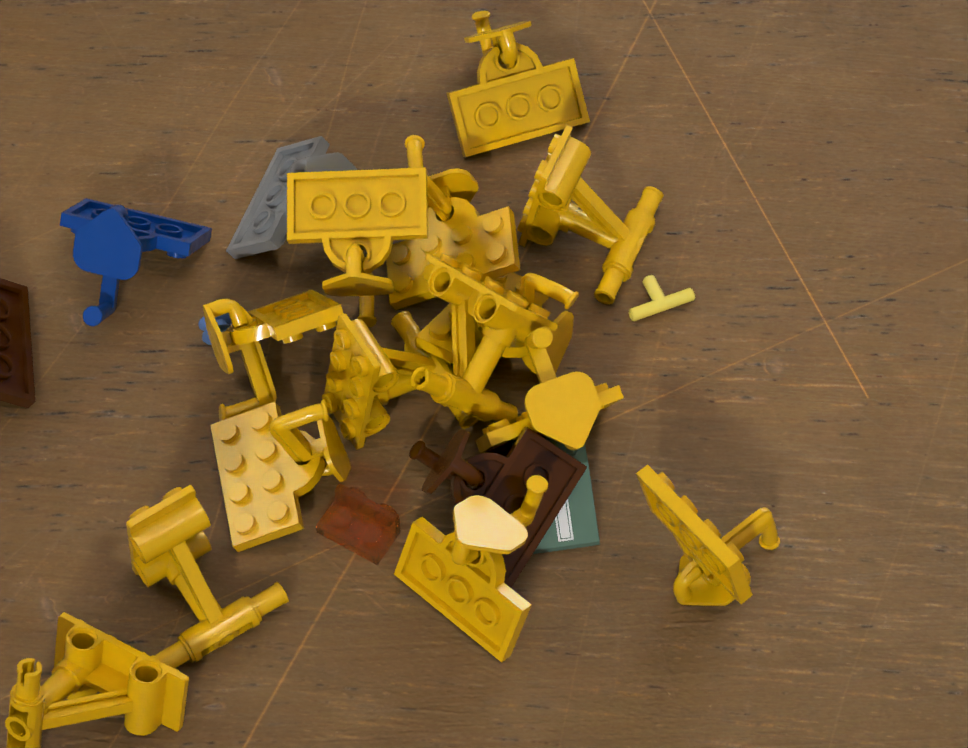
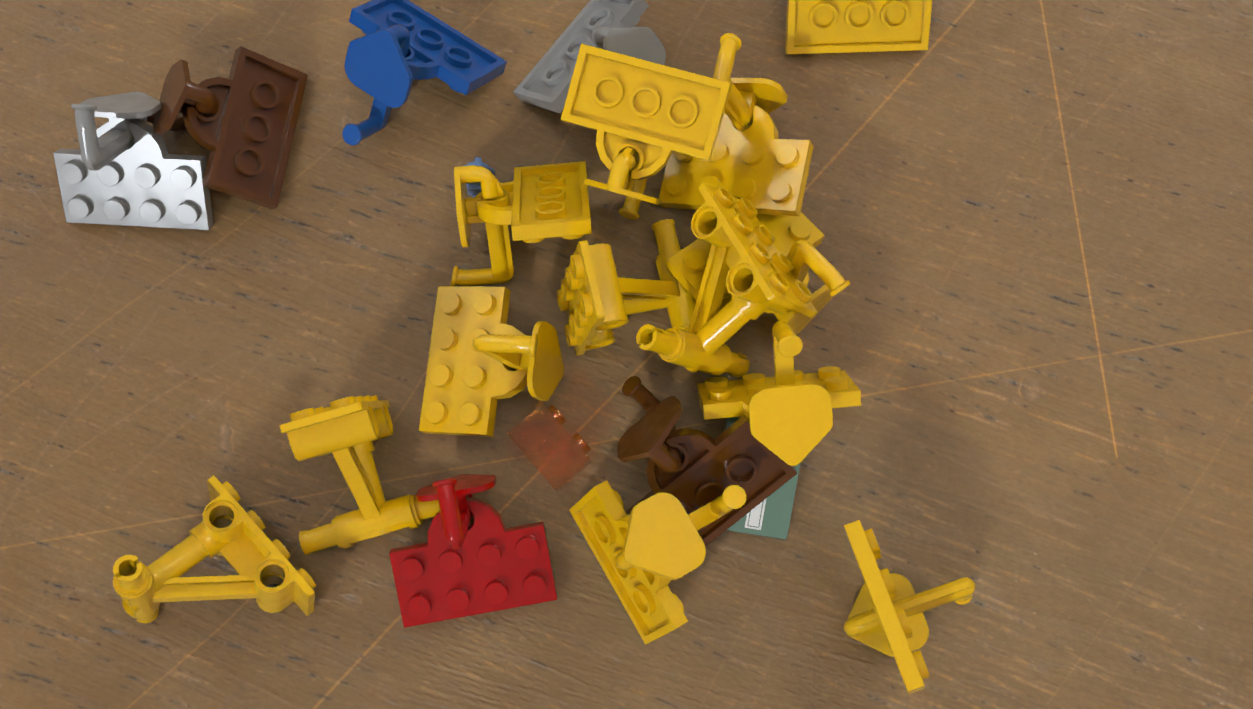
camera: 20 degrees right, 20 degrees up
(320, 638) = (473, 566): none -> red plate
(551, 209) = (870, 145): yellow plate -> none
(659, 300) = (935, 281): light yellow piece -> none

